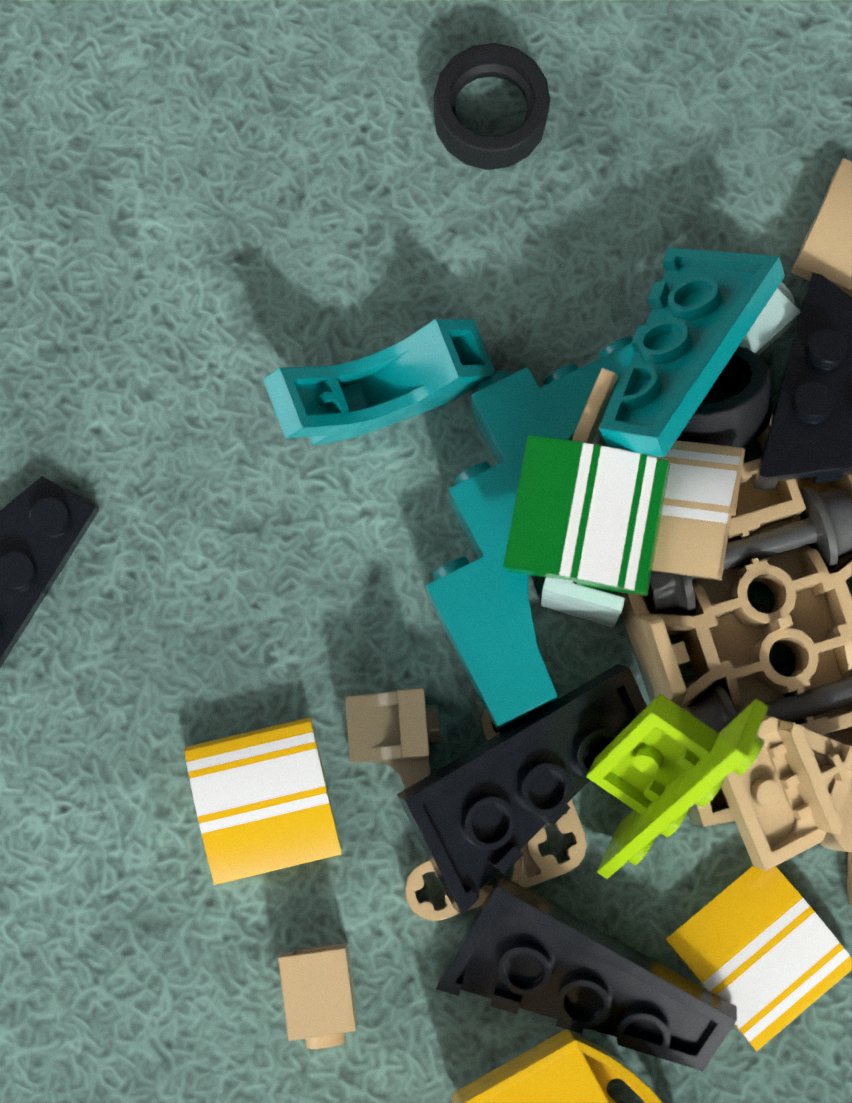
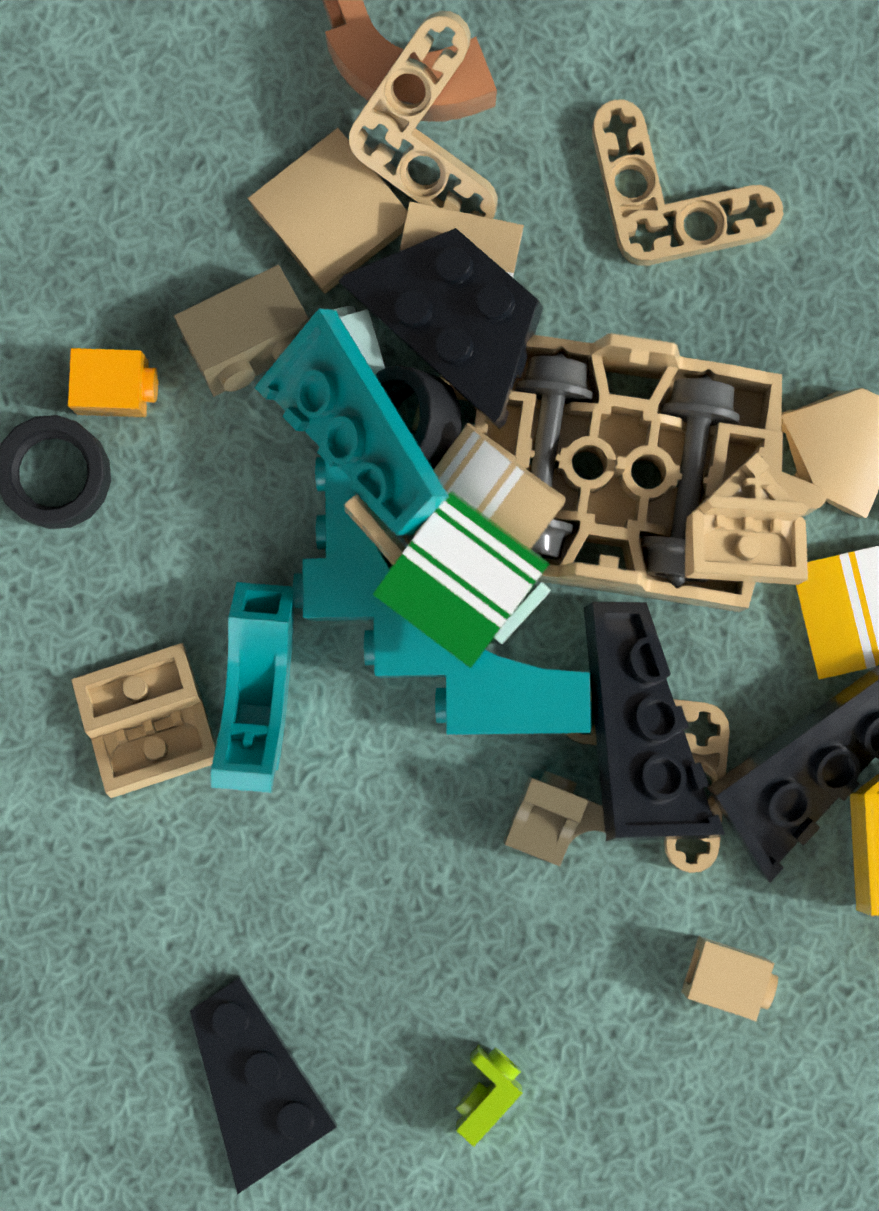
camera: 65 degrees left, 5 degrees up
(77, 802) = (484, 1105): none -> lime bracket
(262, 801) = (552, 951): slope -> none
(300, 301) = (135, 696): none -> tan slope
(602, 116) = (111, 382): none -> light orange brick
(665, 767) = (693, 617): lime bracket -> none
(716, 205) = (242, 330): none -> dark tan brick

